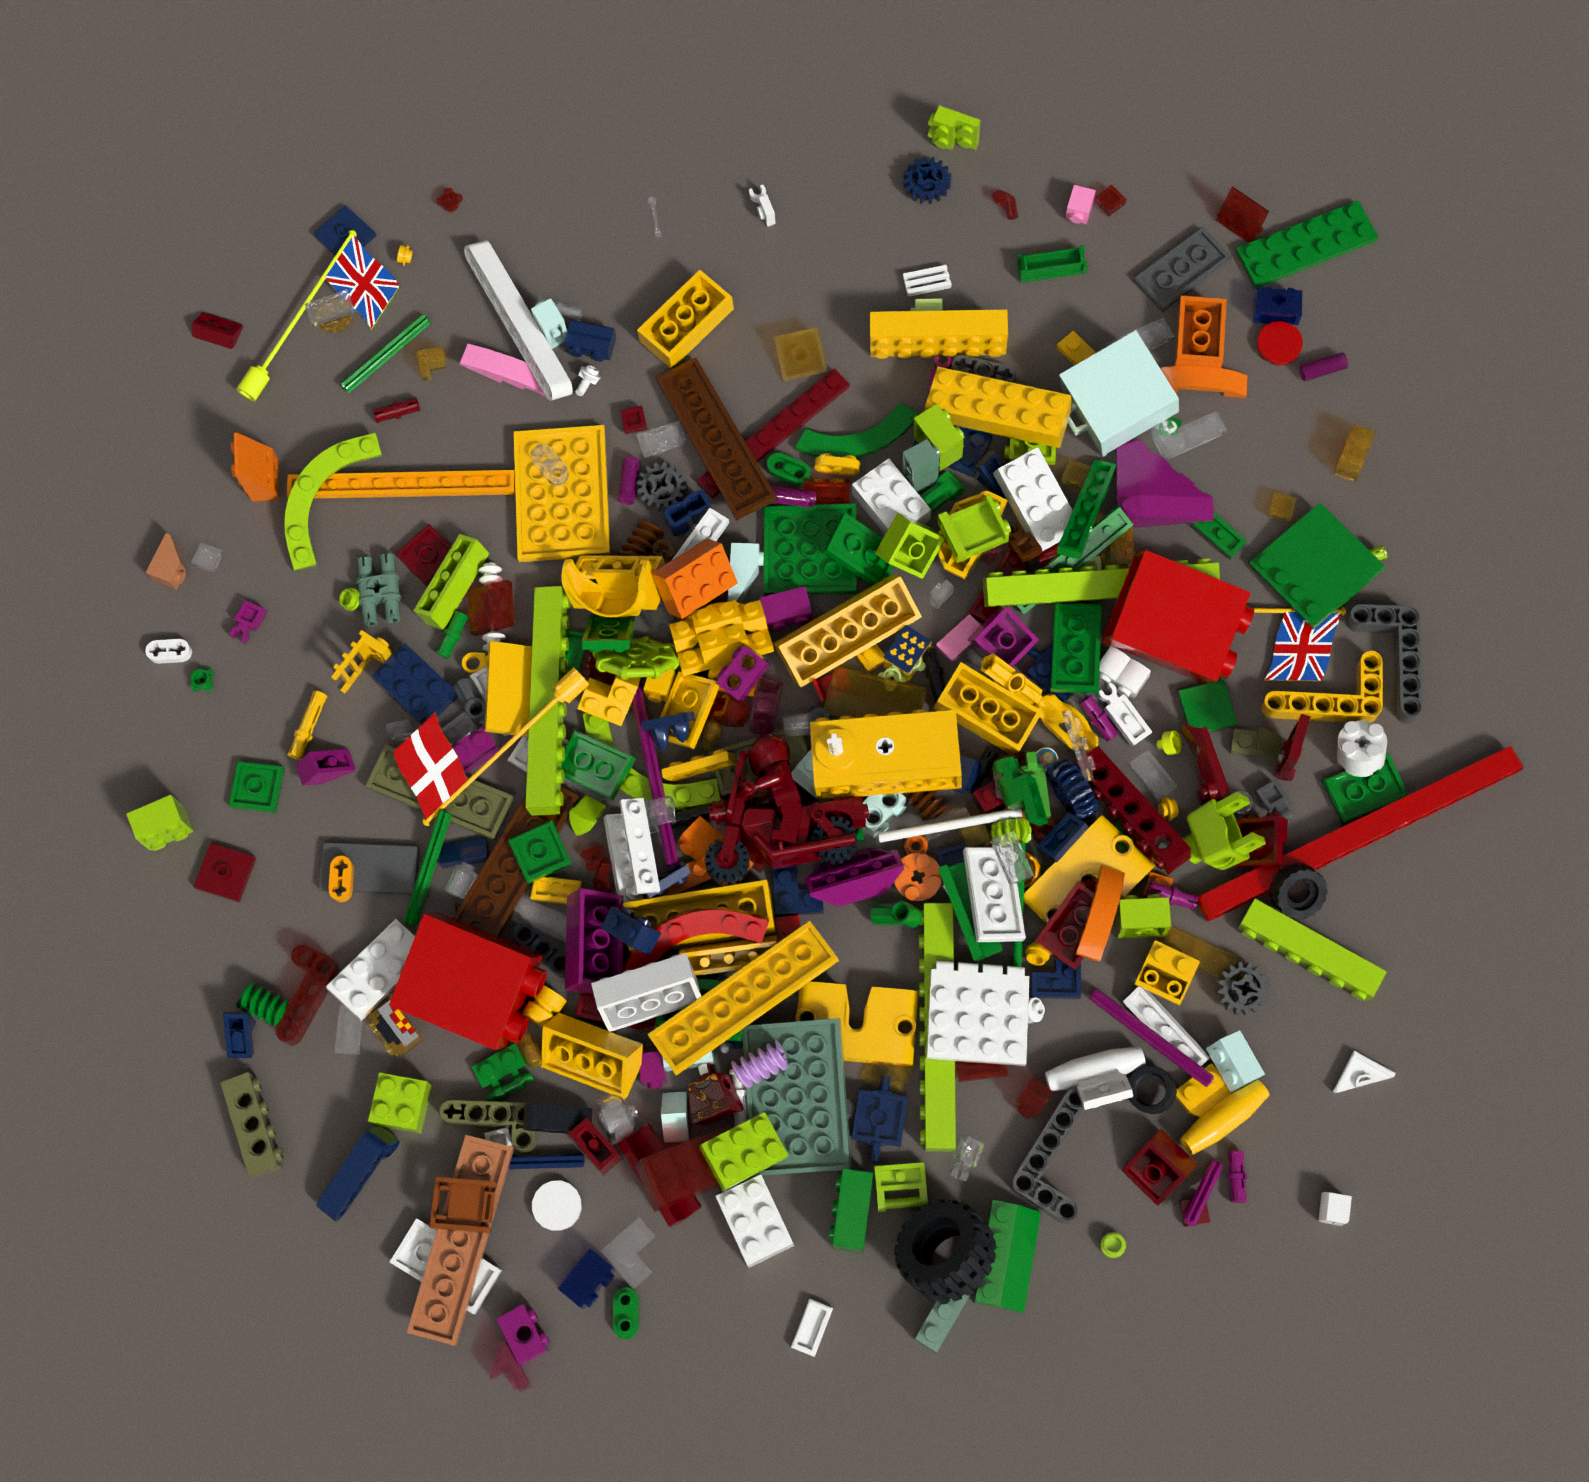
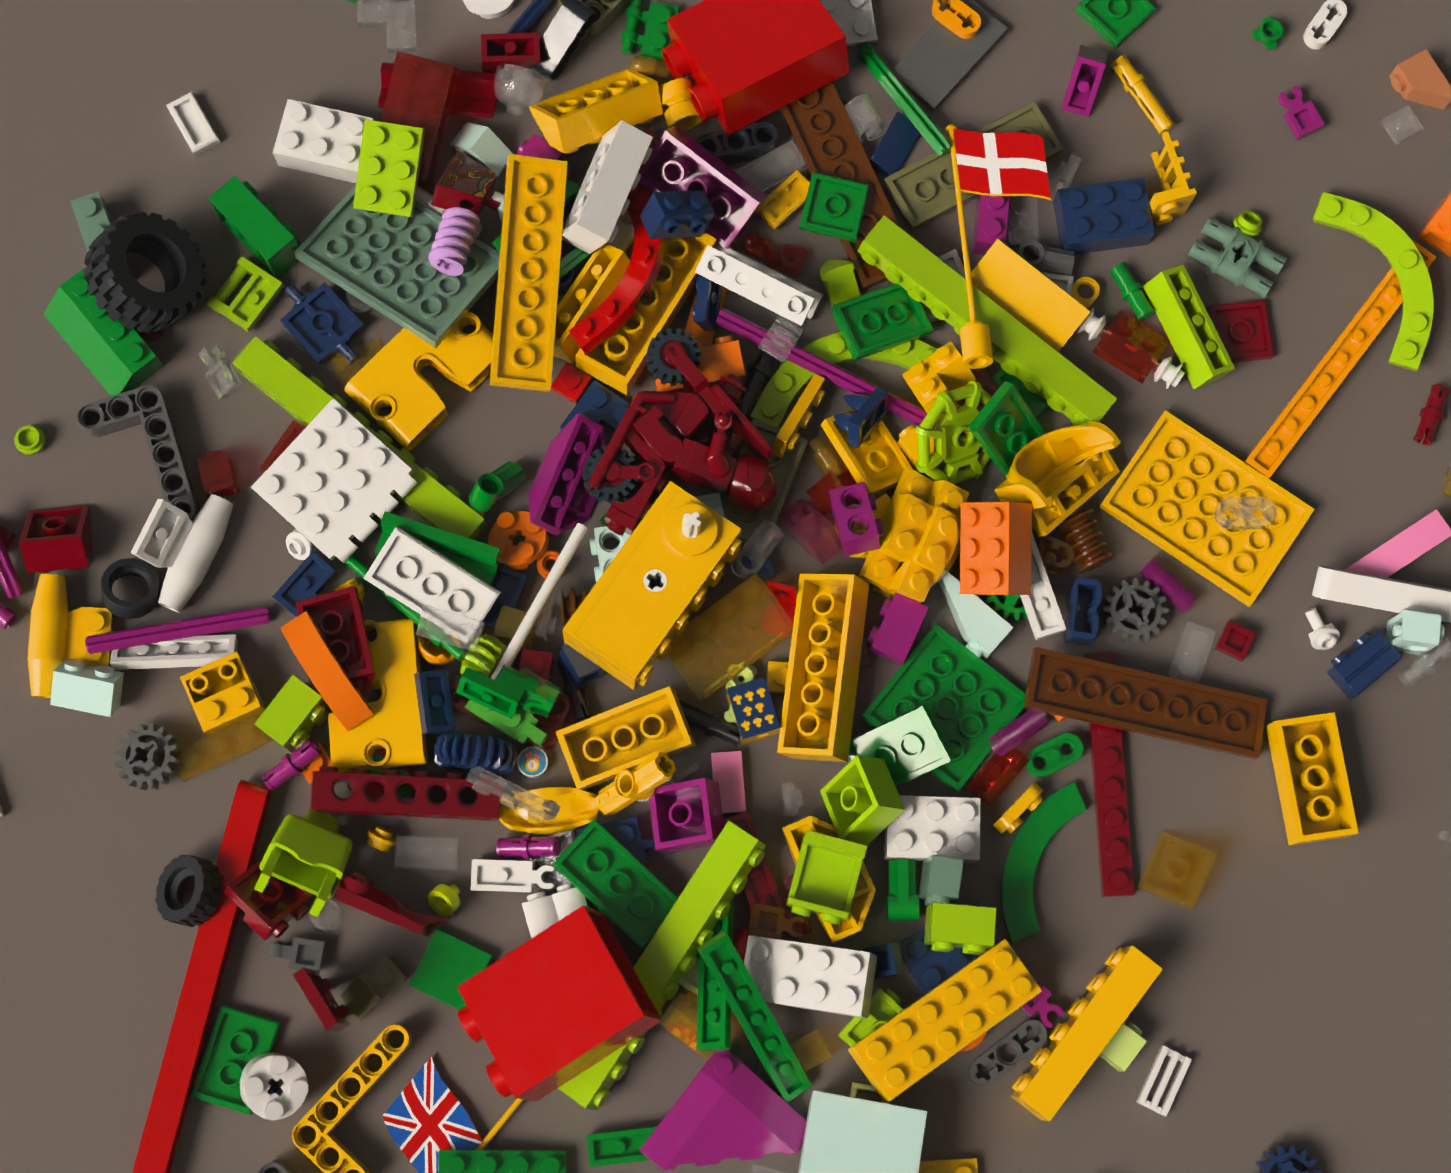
camera: 115 degrees right, 5 degrees up
(765, 209) = (1384, 970): white plate -> none
(1312, 950) = (125, 857): lime brick -> none

